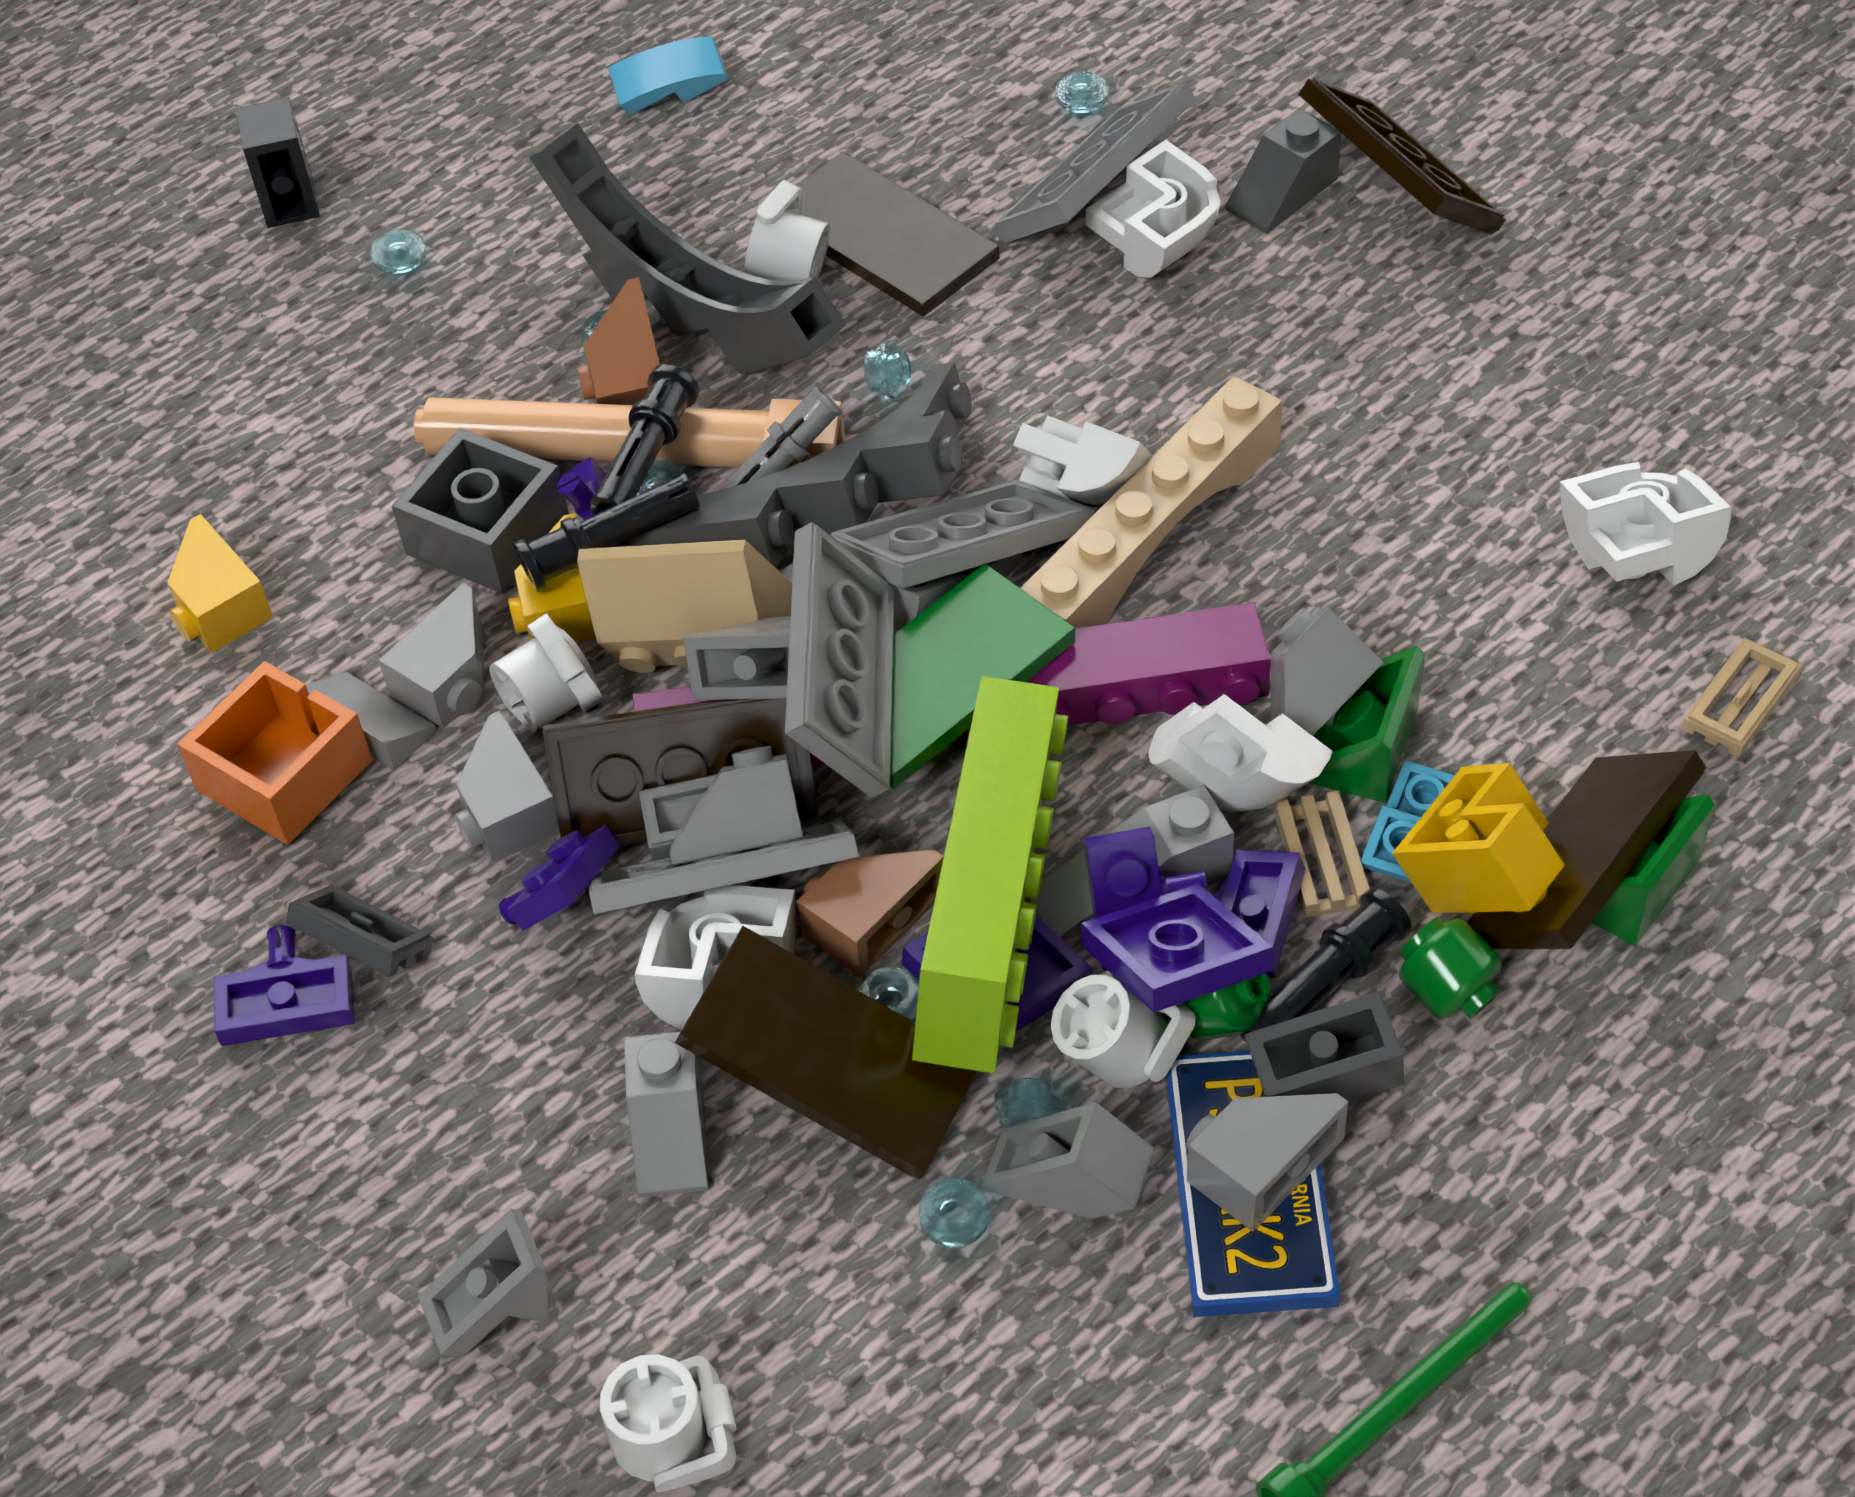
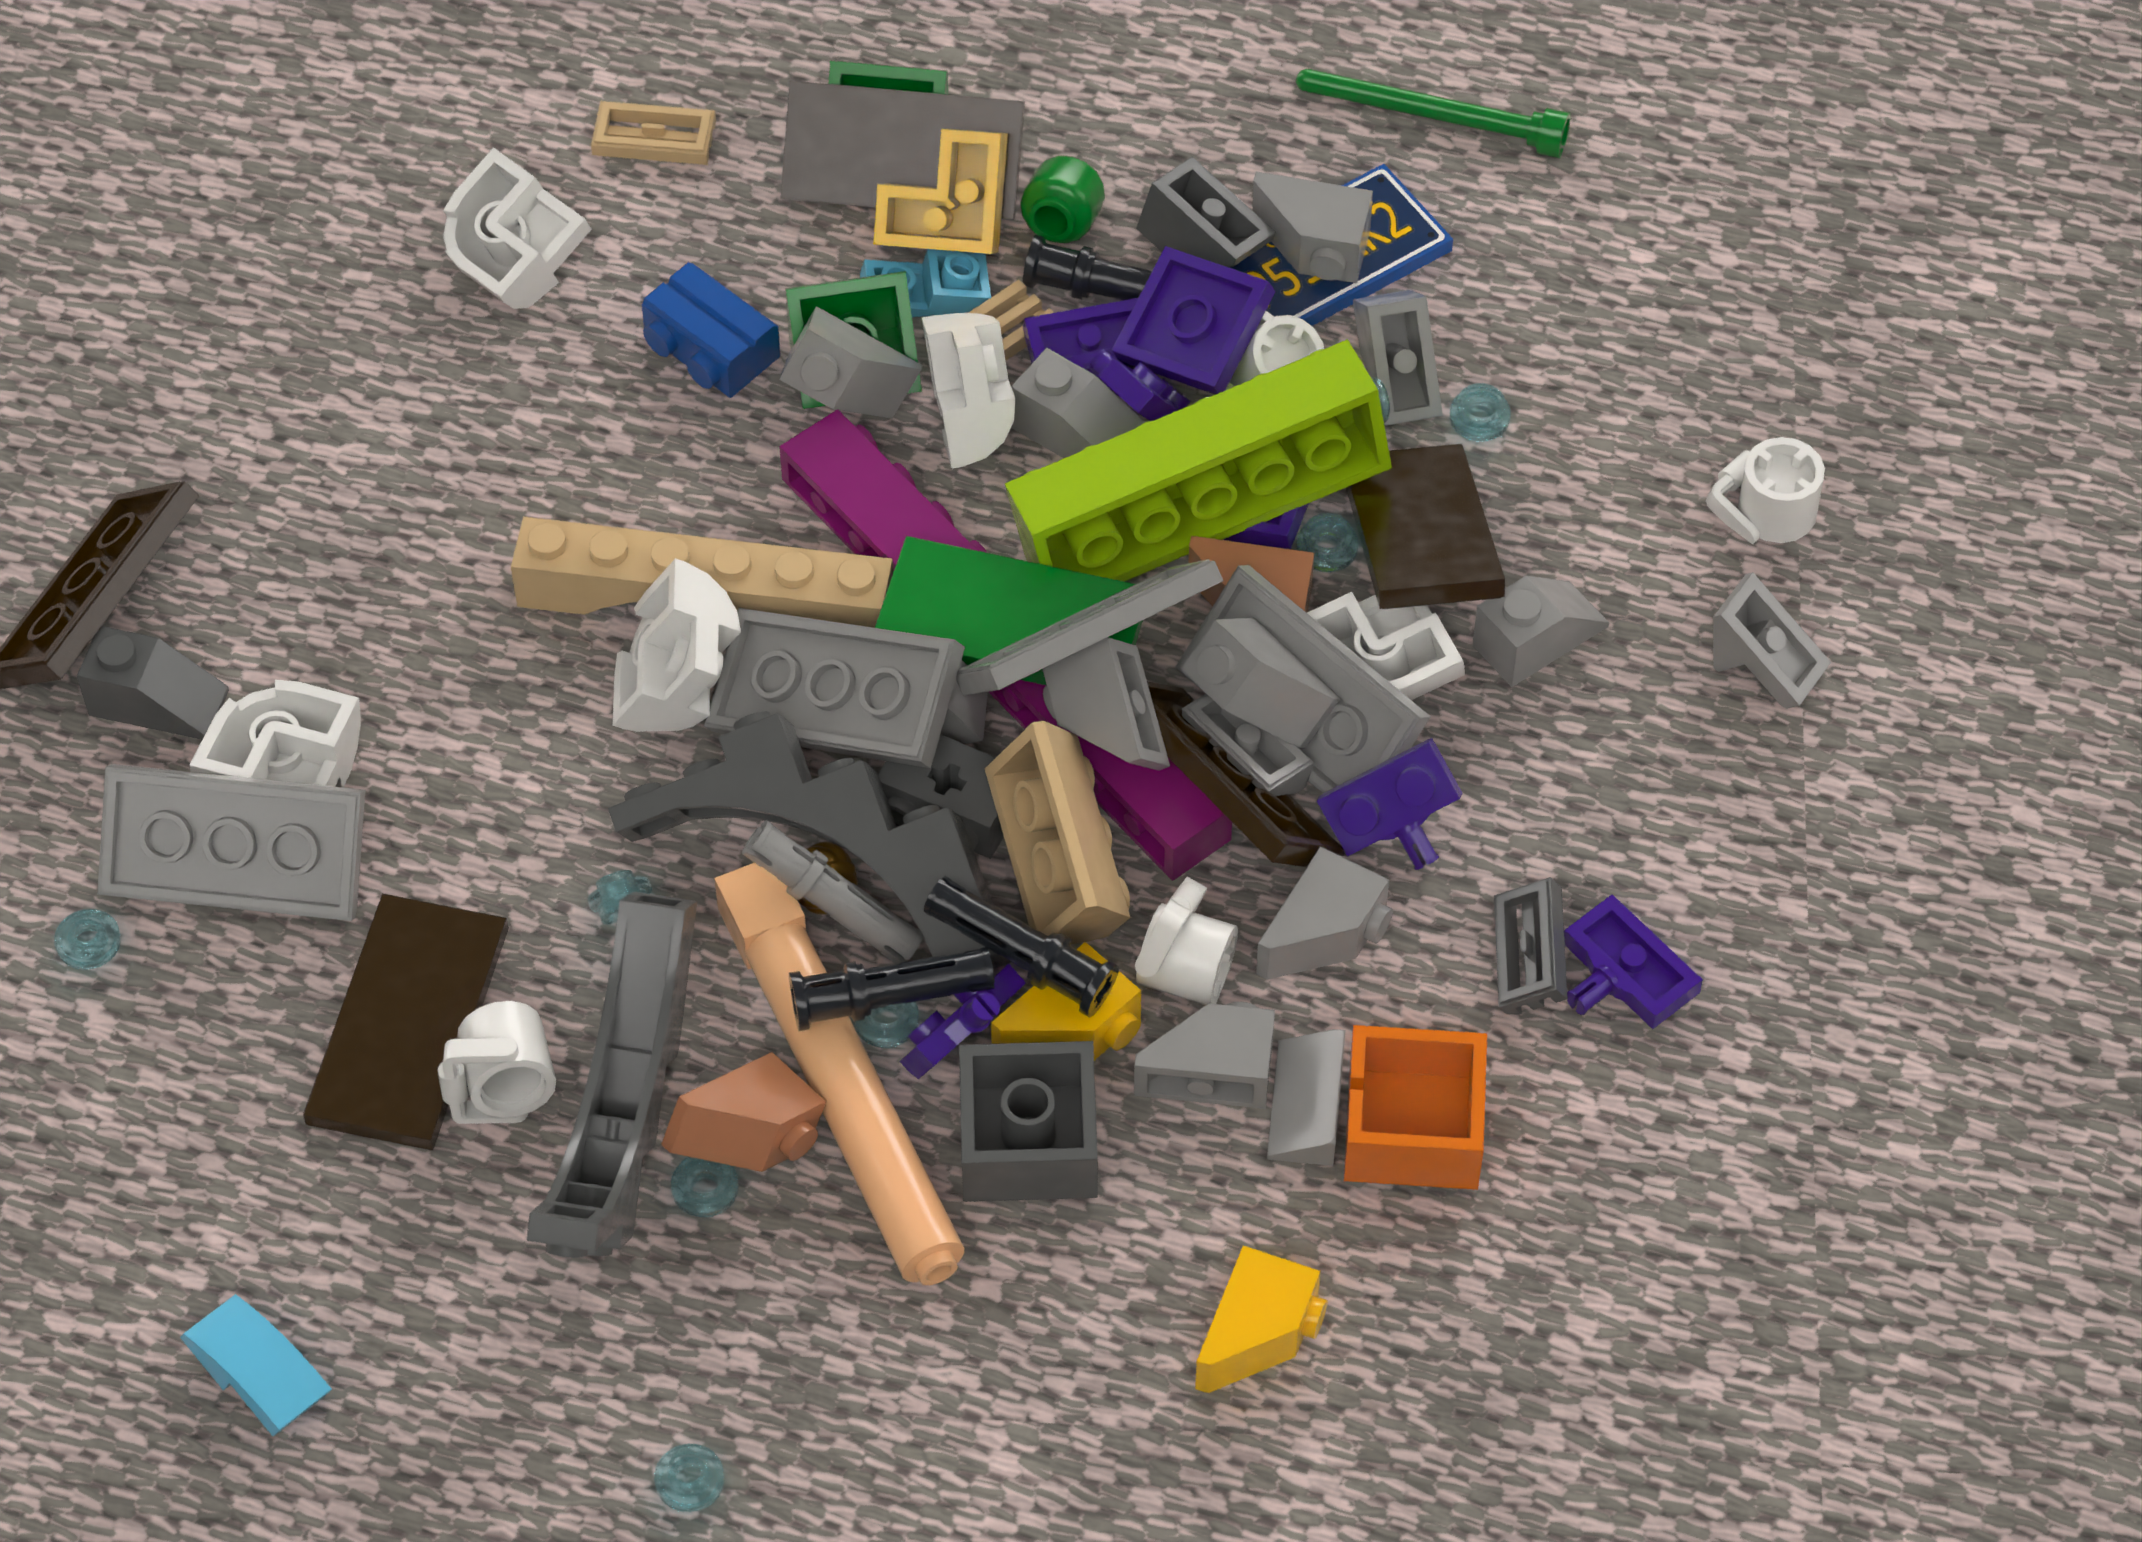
camera: 125 degrees left, 5 degrees up
(1457, 626) = (709, 330): none -> blue brick

